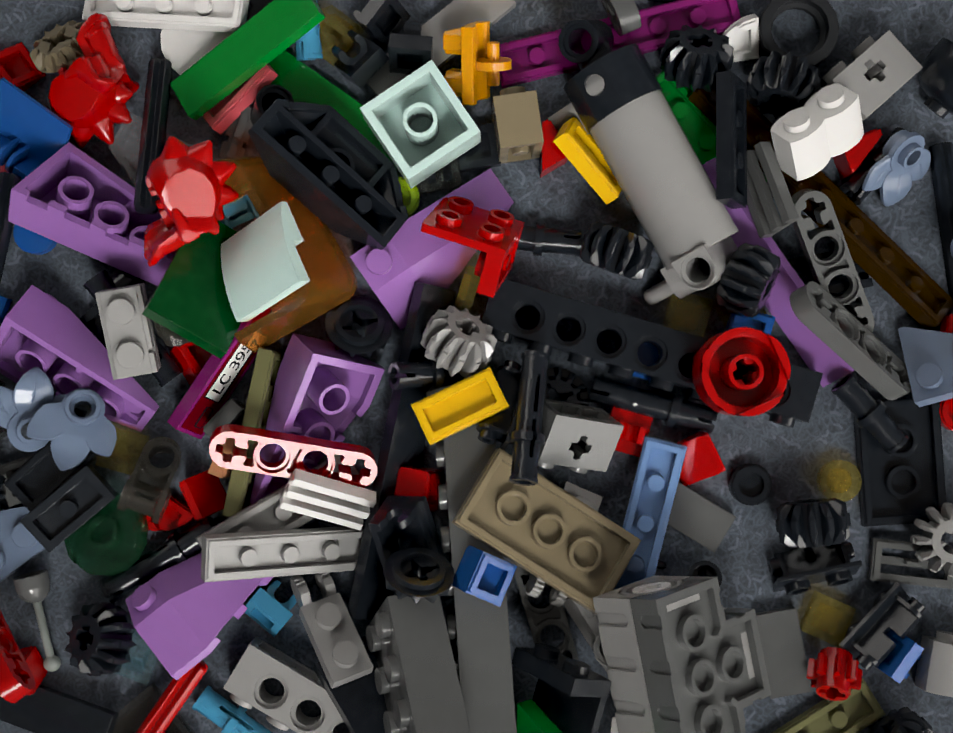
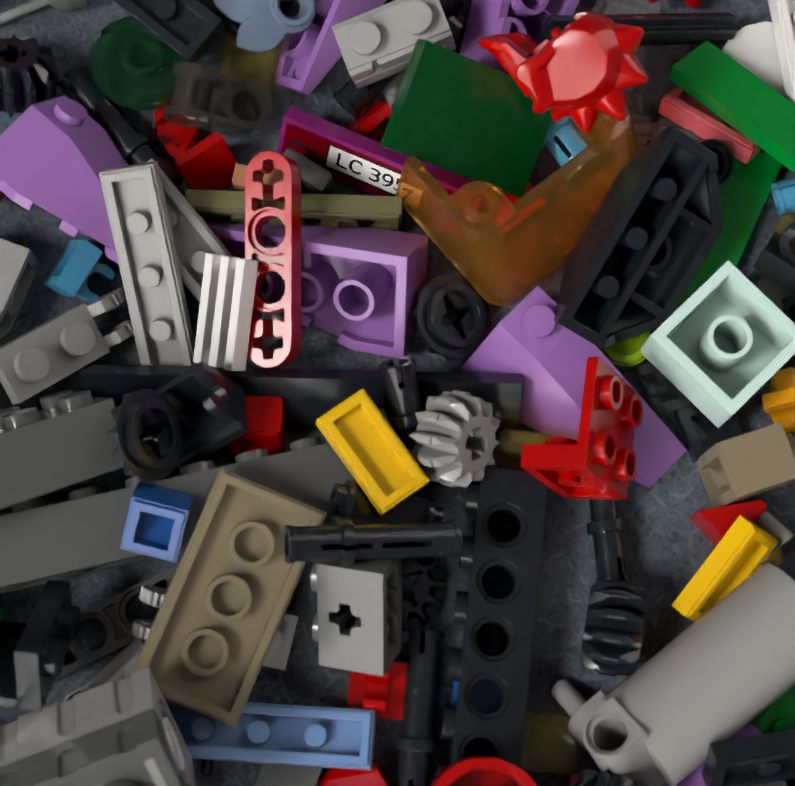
camera: 80 degrees right, 10 degrees down
(262, 263) = (507, 173): light aqua slope -> none

